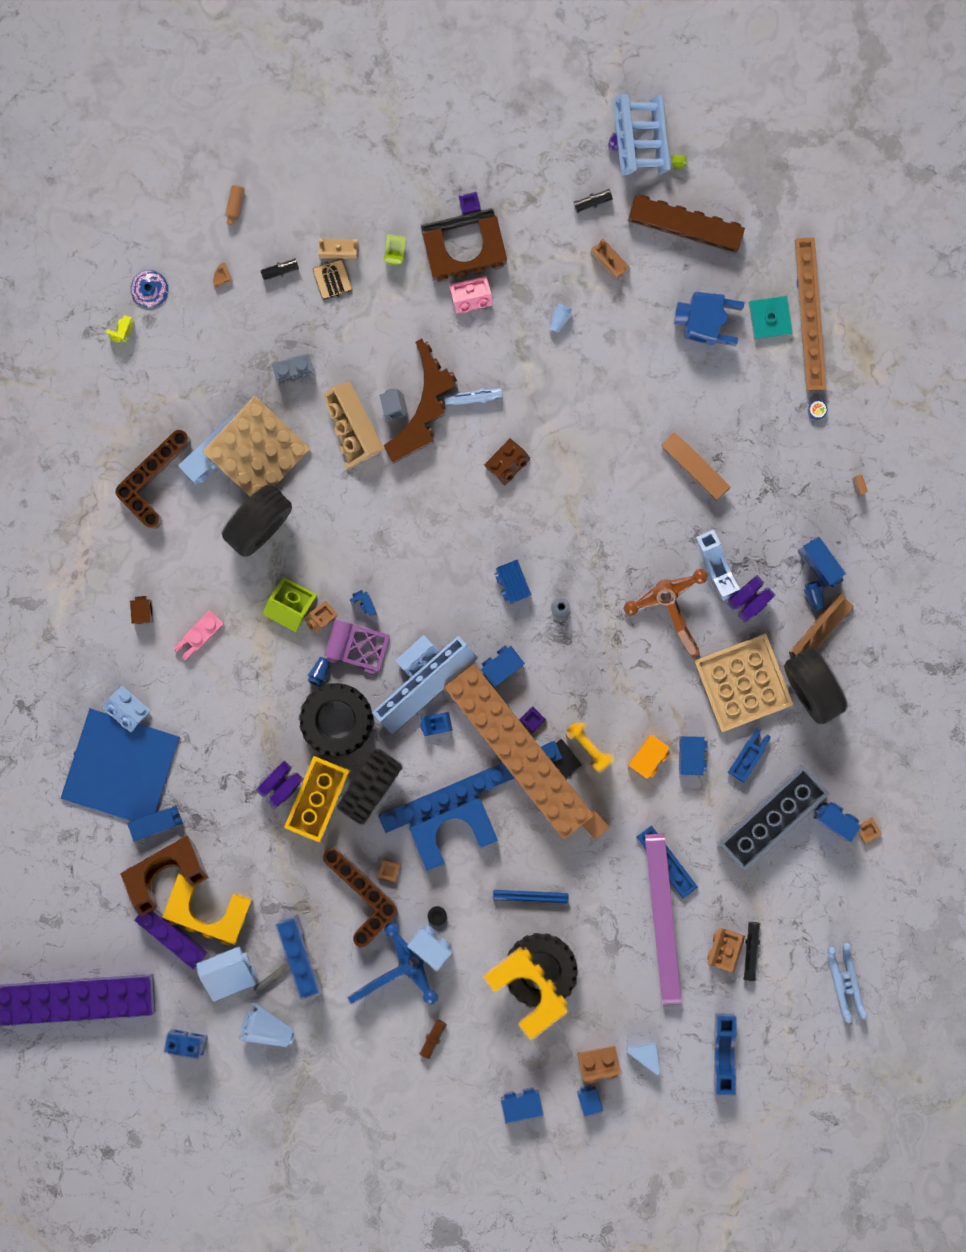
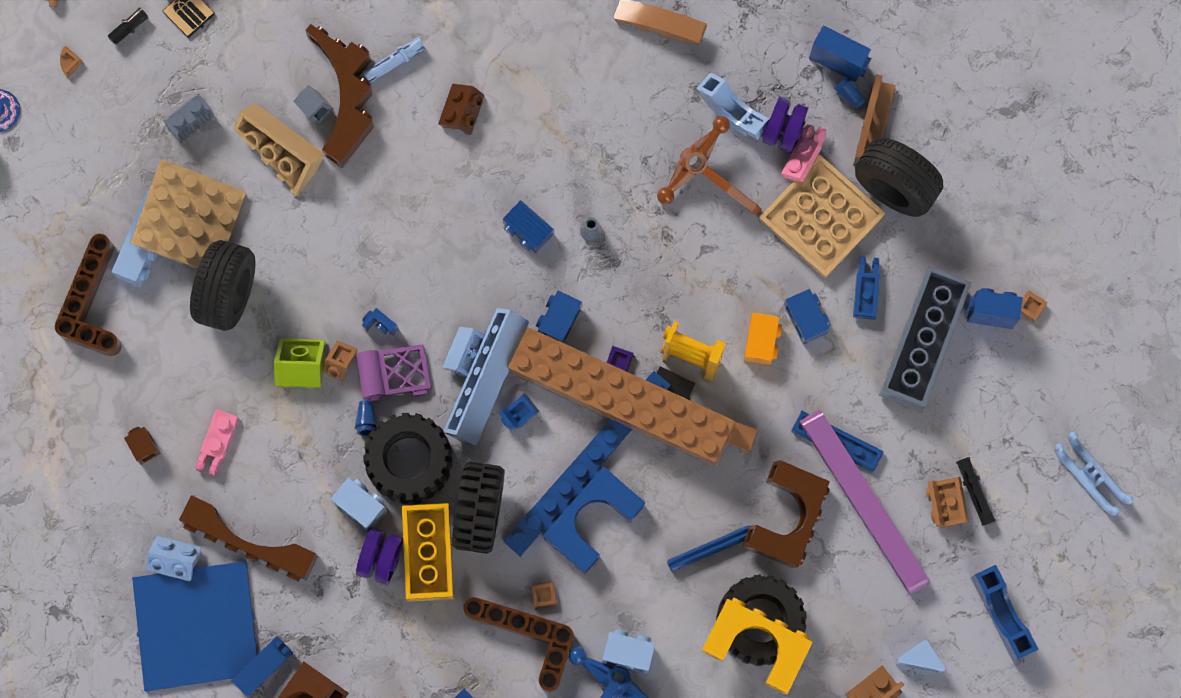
camera: 25 degrees left, 10 degrees down
(163, 690) = (290, 558): none -> reddish brown arch
(282, 738) = (359, 505): none -> light blue brick
(437, 915) = (619, 618): black tile -> none
(590, 925) = (809, 493): none -> reddish brown arch
(754, 628) = (804, 154): none -> bright pink hinge

